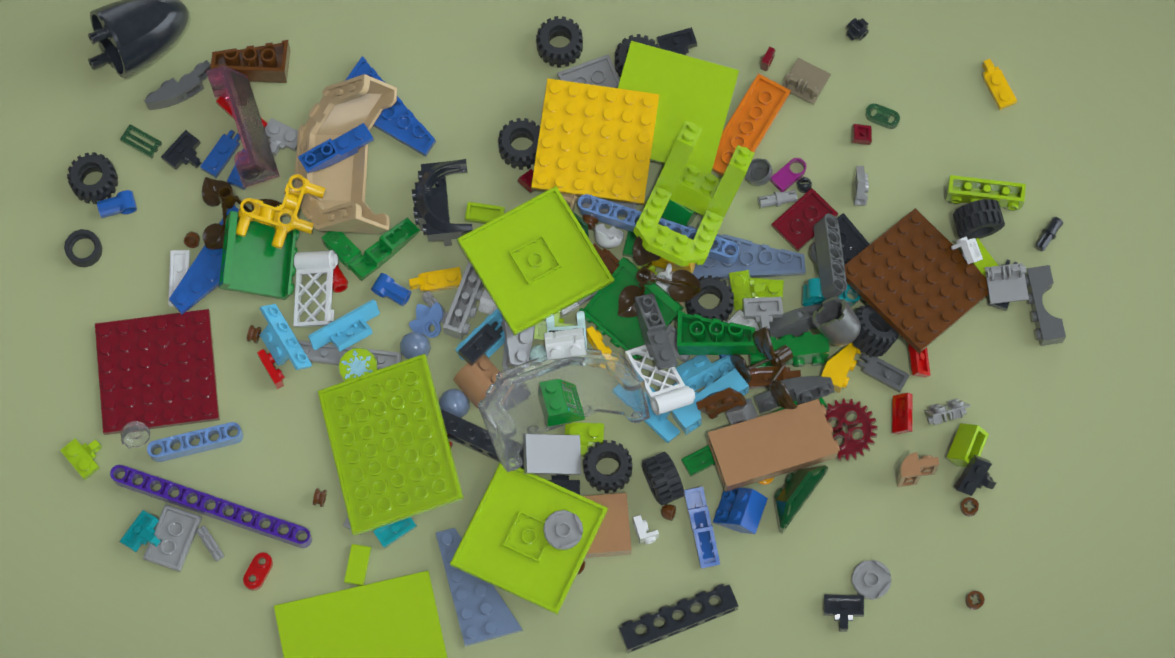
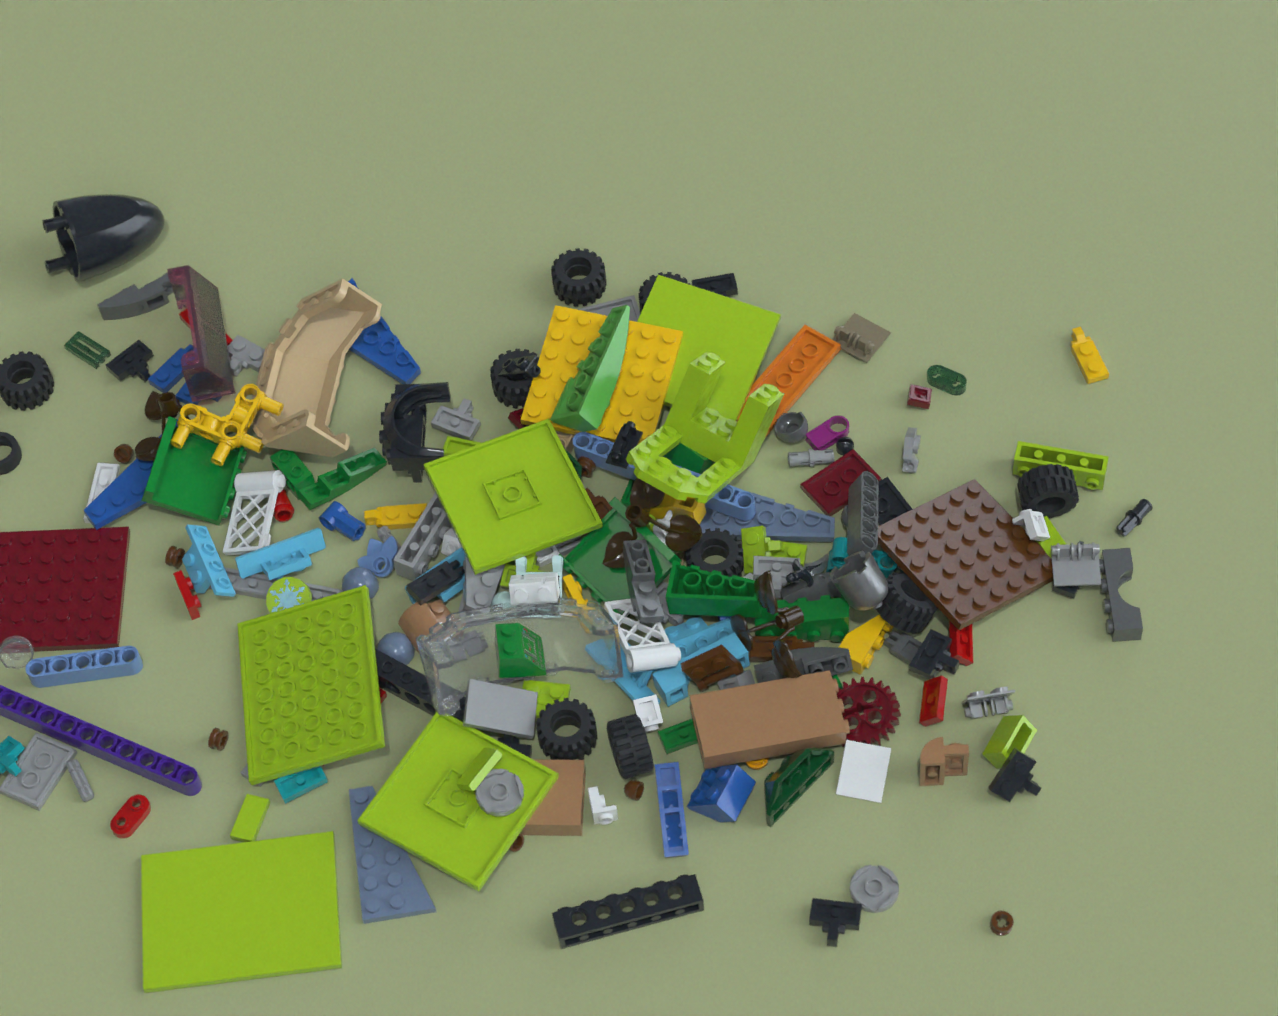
camera: 10 degrees right, 15 degrees down
(121, 203) = (53, 410): blue piece -> none
(259, 63) = (236, 278): reddish brown wedge -> none
(336, 150) = (304, 369): blue slope -> none
(474, 187) = (457, 421): none -> light grey hinge
(525, 139) = (520, 368): none -> black hinge
(544, 512) = (479, 769): none -> lime tile
(589, 157) = (590, 391): none -> bright green wedge
(608, 237) = (604, 484): white hair -> none
(623, 207) = (625, 441): none -> black hinge
(673, 445) = (649, 712): none -> white bracket
(767, 59) = (818, 311): dark red tile -> none
(791, 304) = (806, 572): none -> black piece
(852, 480) = (863, 771): none -> white sticker
(857, 29) = (926, 286): black gear -> none
(899, 375) = (934, 656): none -> black hinge
(964, 510) = (1006, 822): reddish brown bush -> none

